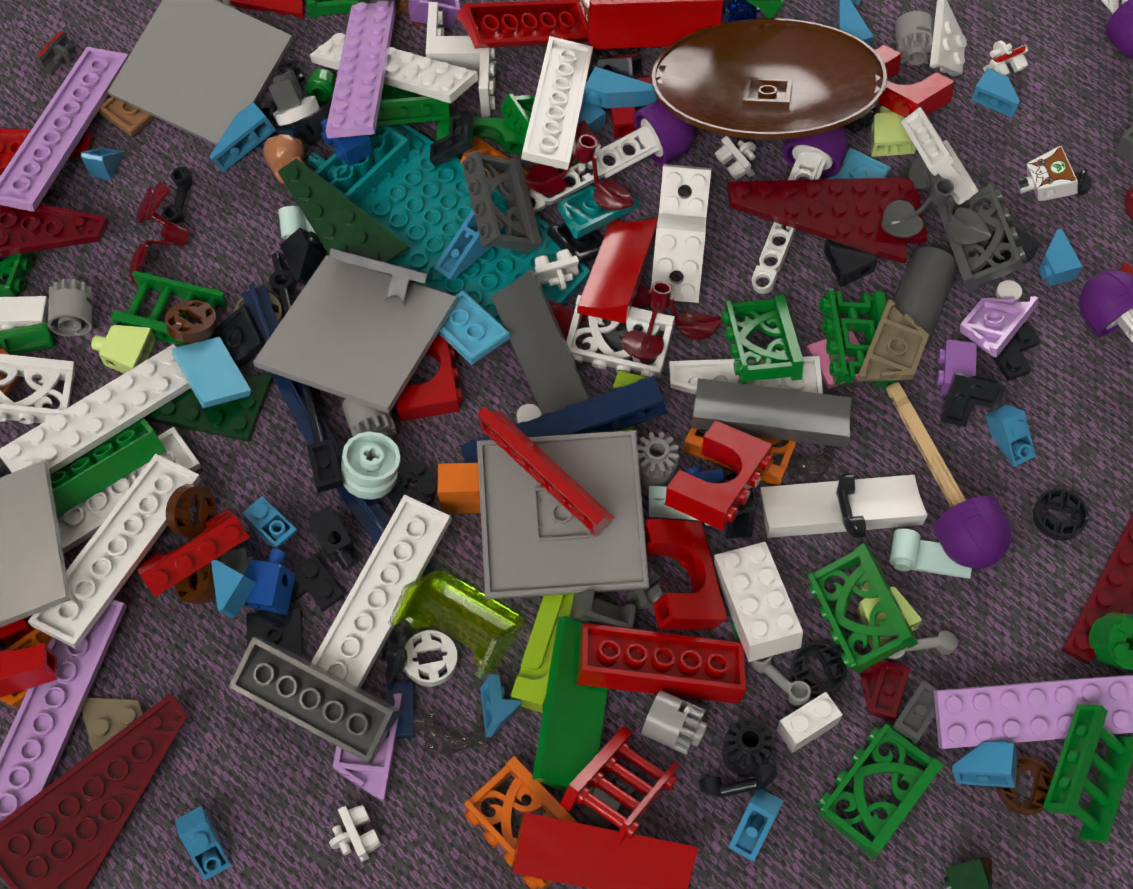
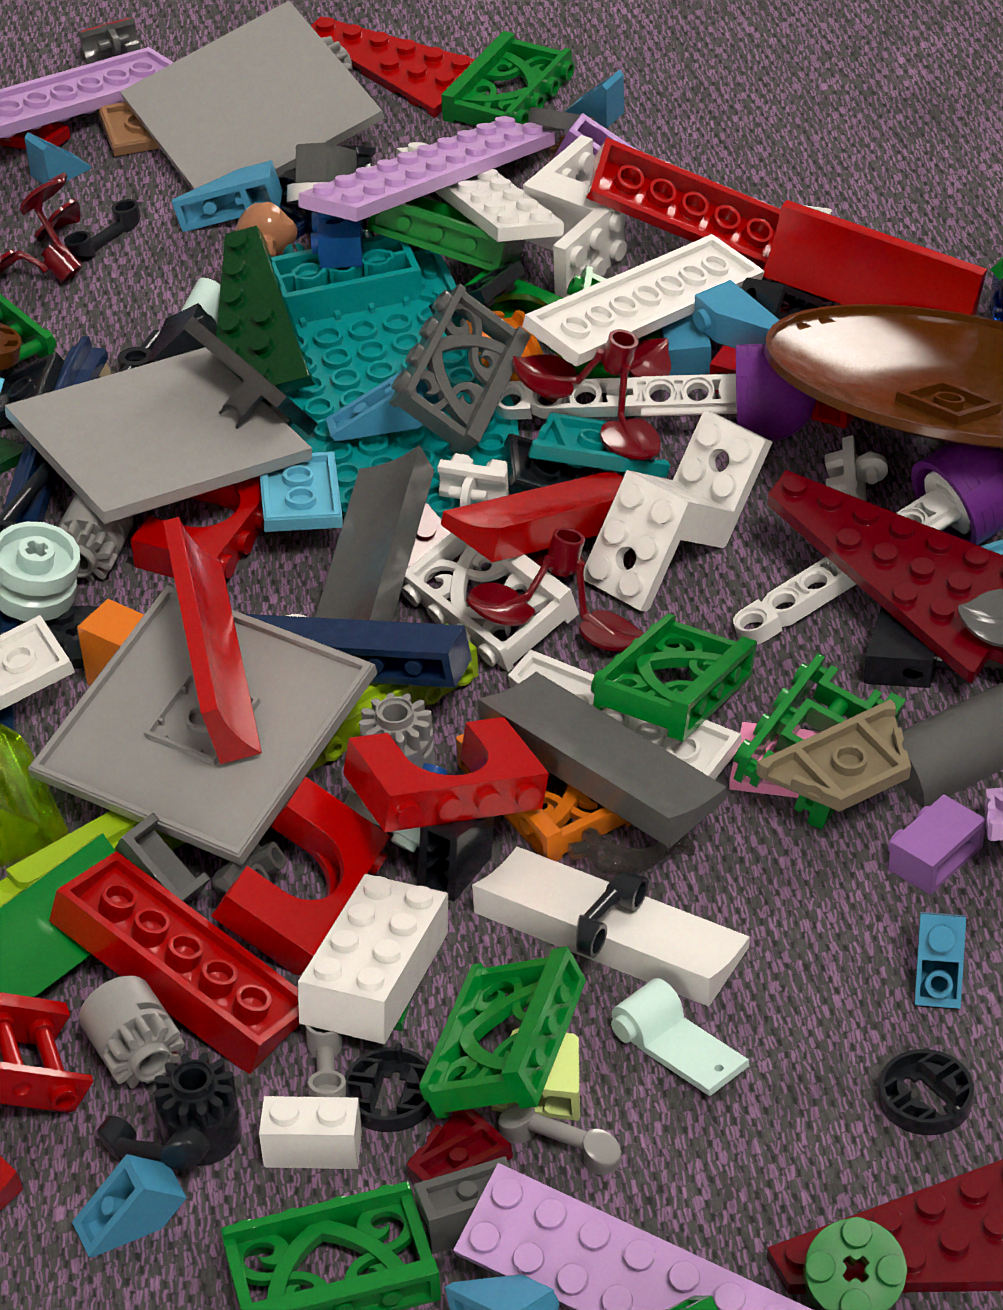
camera: 35 degrees right, 20 degrees down
(965, 392) = (909, 864): black plate -> none
(972, 530) = (754, 1010): dark purple piece -> none

